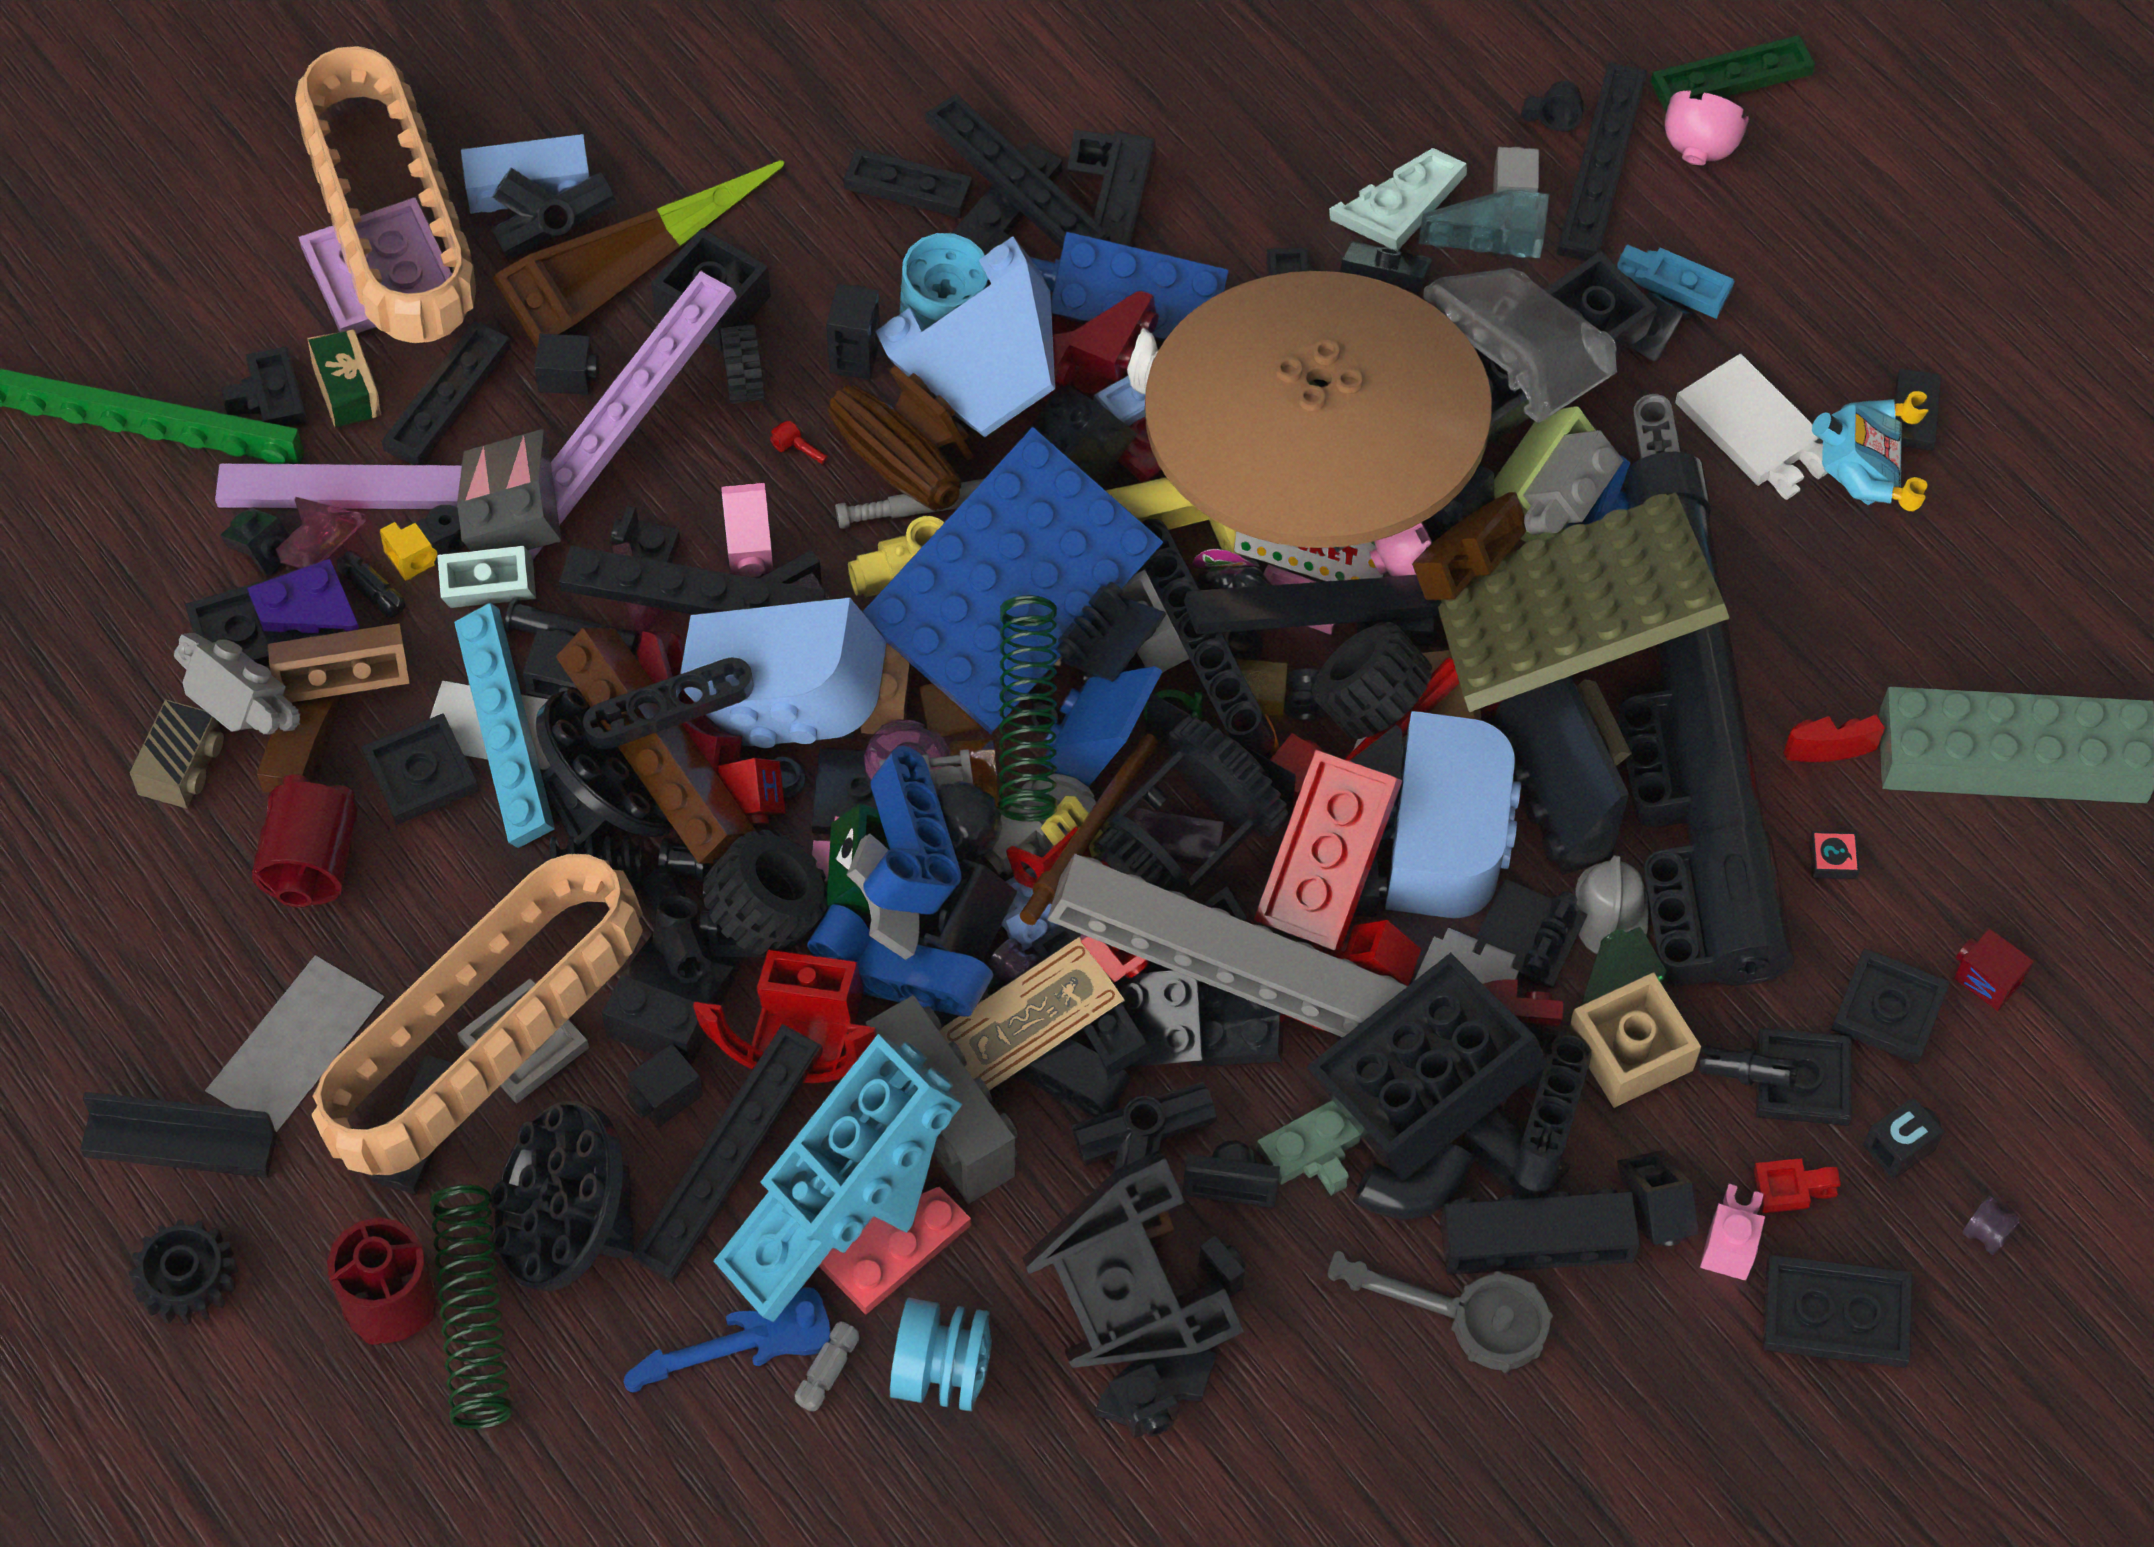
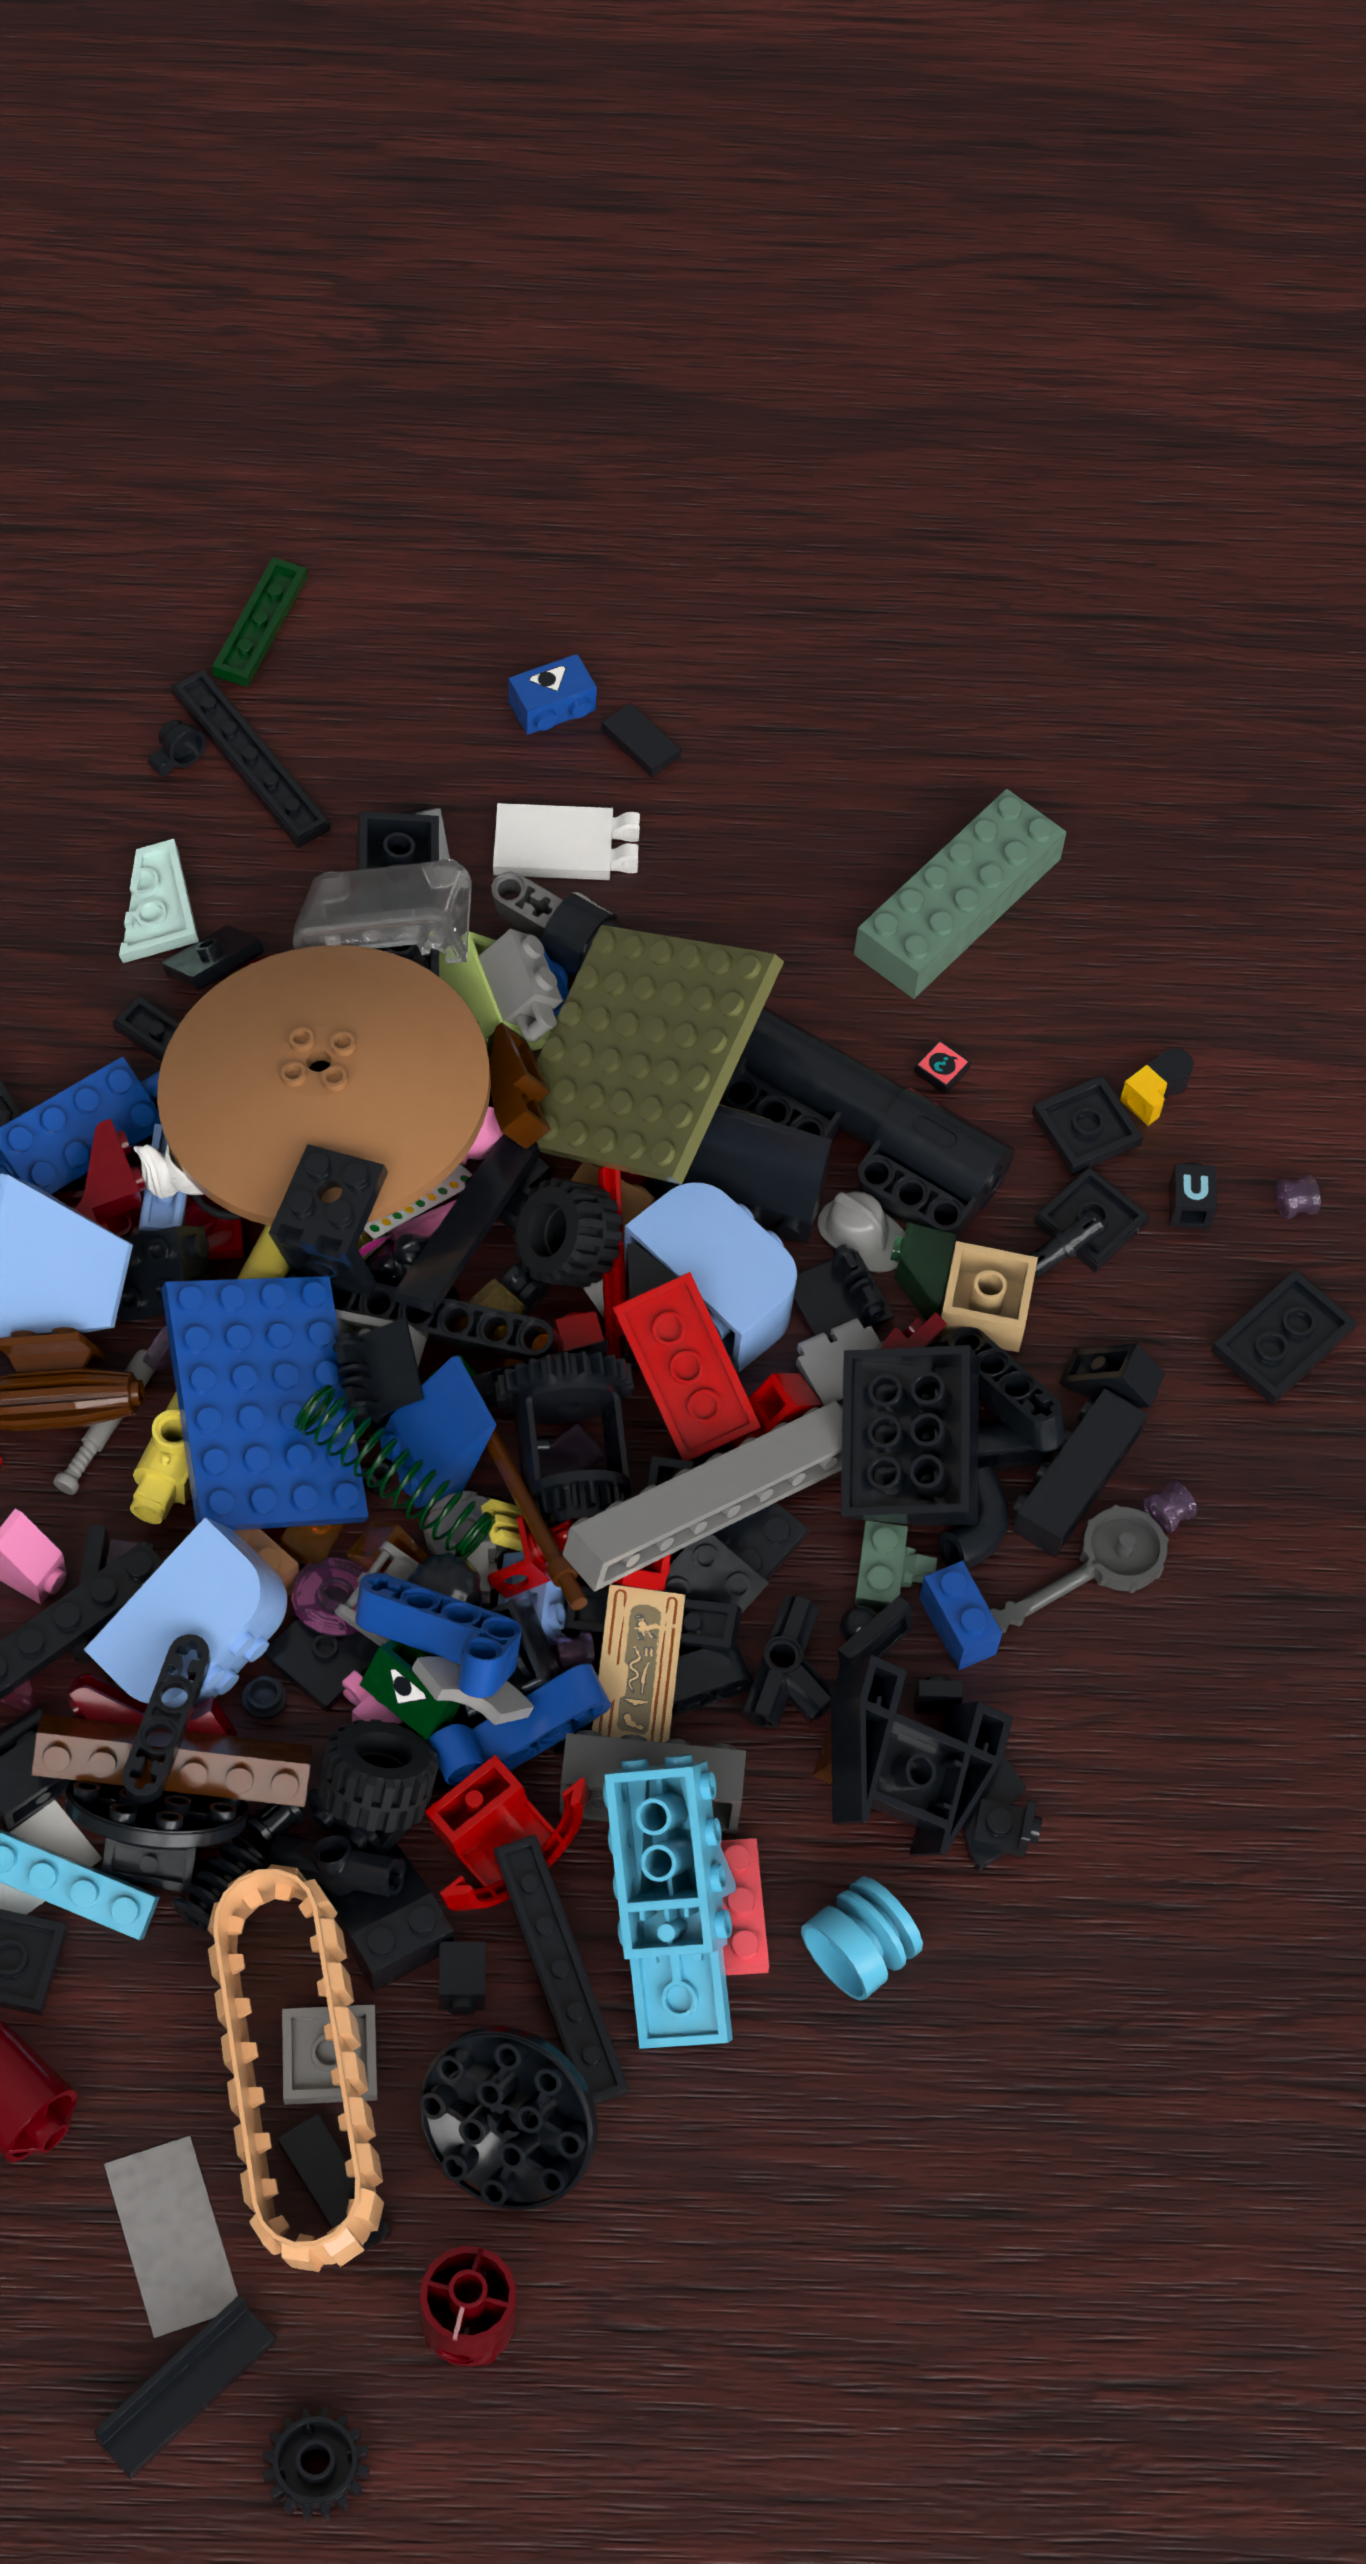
camera: 55 degrees left, 0 degrees up
(485, 1401) = (630, 2314): dark green piece -> none
(755, 787) = (265, 1719): red brick -> none
(797, 1331) = (751, 2028): blue piece -> none
(826, 1366) = (793, 2029): light grey axle -> none
(1179, 495) = (323, 1236): none -> black bracket
(1311, 1231) = (960, 1615): none -> blue brick
(1496, 223) = (244, 859): clear light blue slope -> none
(1516, 169) = (216, 820): light grey brick -> none
(1574, 1330) = (1171, 1506): none -> clear purple wheel
(1677, 279) = (399, 790): dark azure hinge -> none
(1704, 127) = (295, 674): bright pink cylinder -> none
(1733, 1236) = (1182, 1354): bright pink brick -> none
(1789, 1186) = (1169, 1292): red plate -> none
(1824, 742) = (856, 996): red slope -> none
(1865, 449) = (656, 793): torso -> none
(1885, 314) = (552, 694): none -> blue brick
(1992, 968) = (1112, 1043): dark red brick -> none
(1992, 1032) = (1157, 1080): none -> leg

